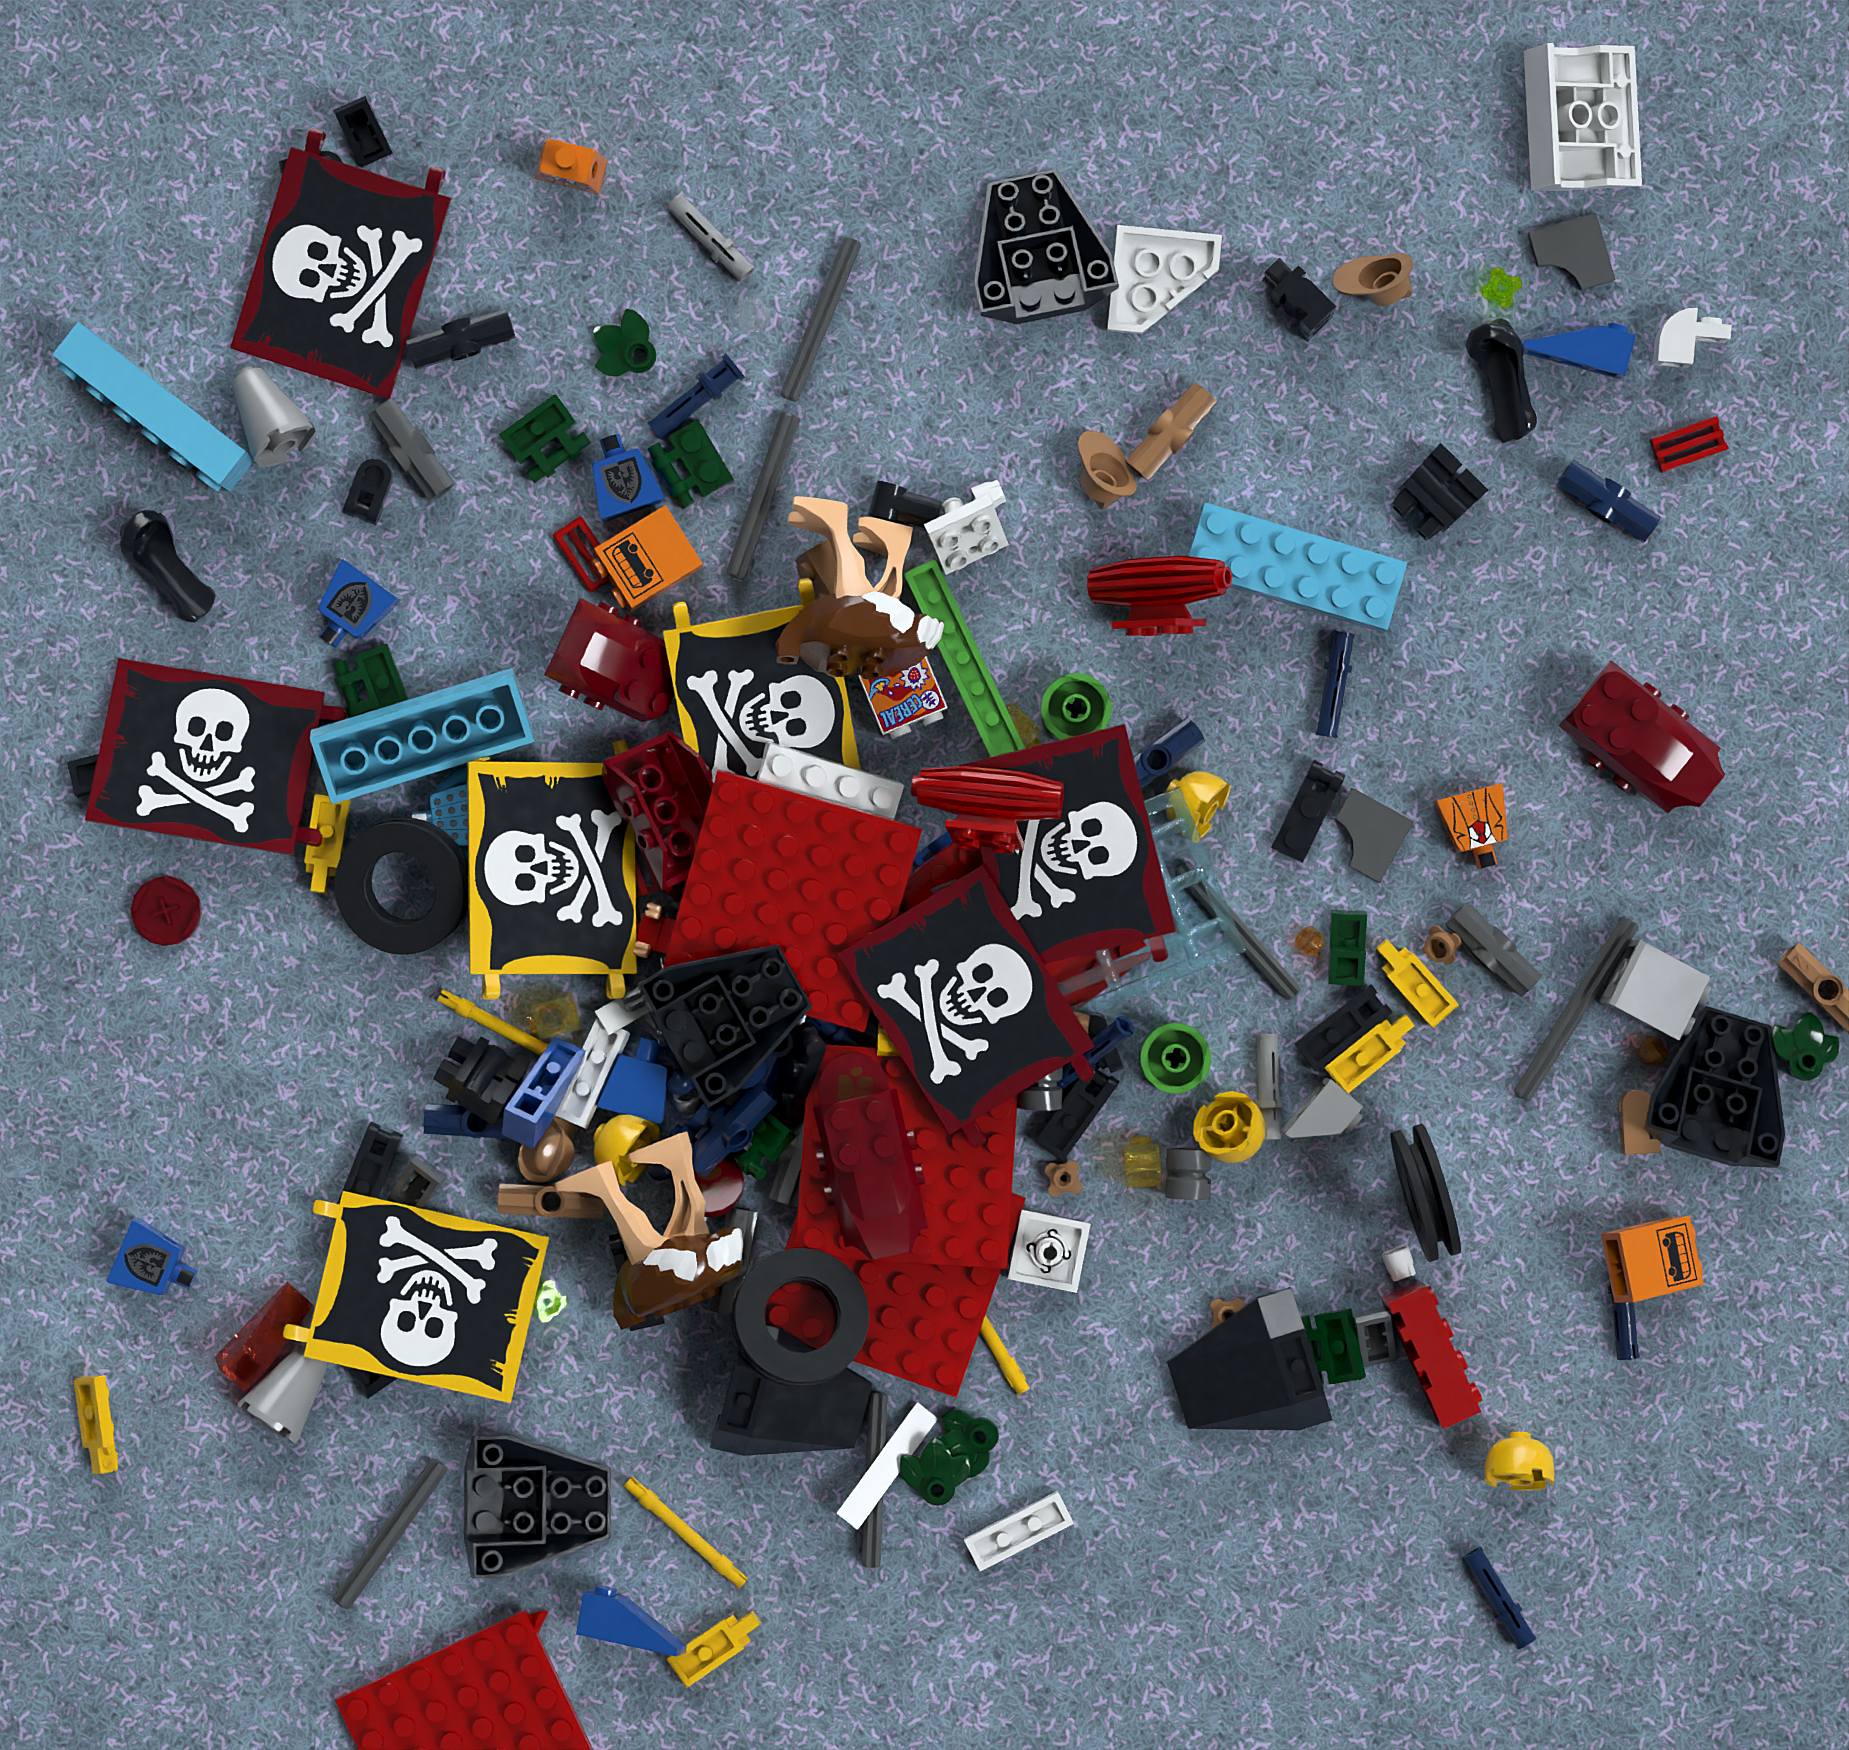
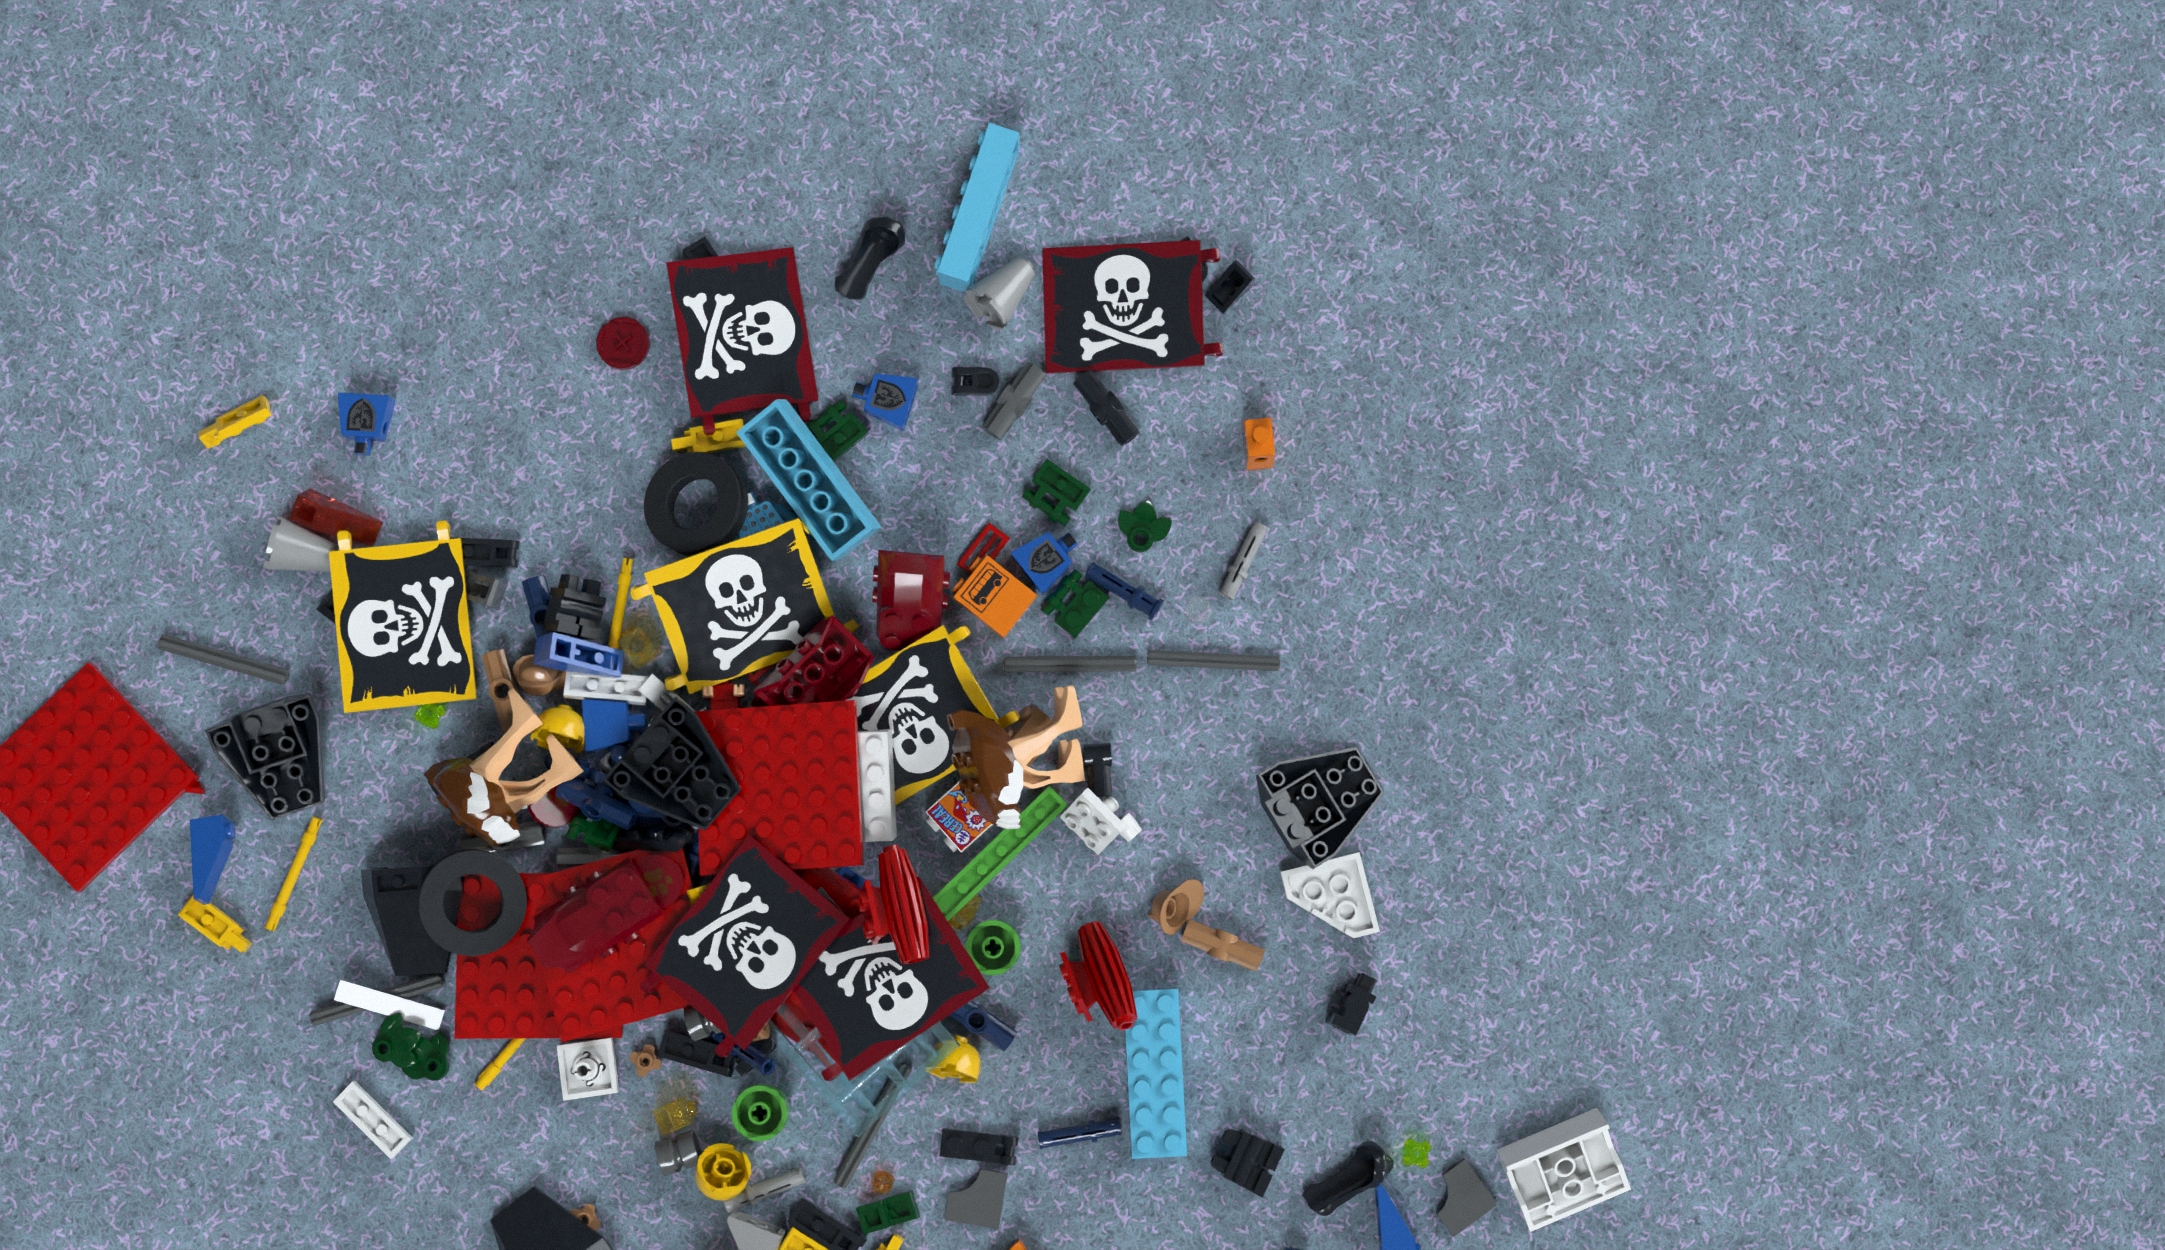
camera: 65 degrees right, 5 degrees down
(1379, 278) = (1389, 1059): medium nougat piece -> none

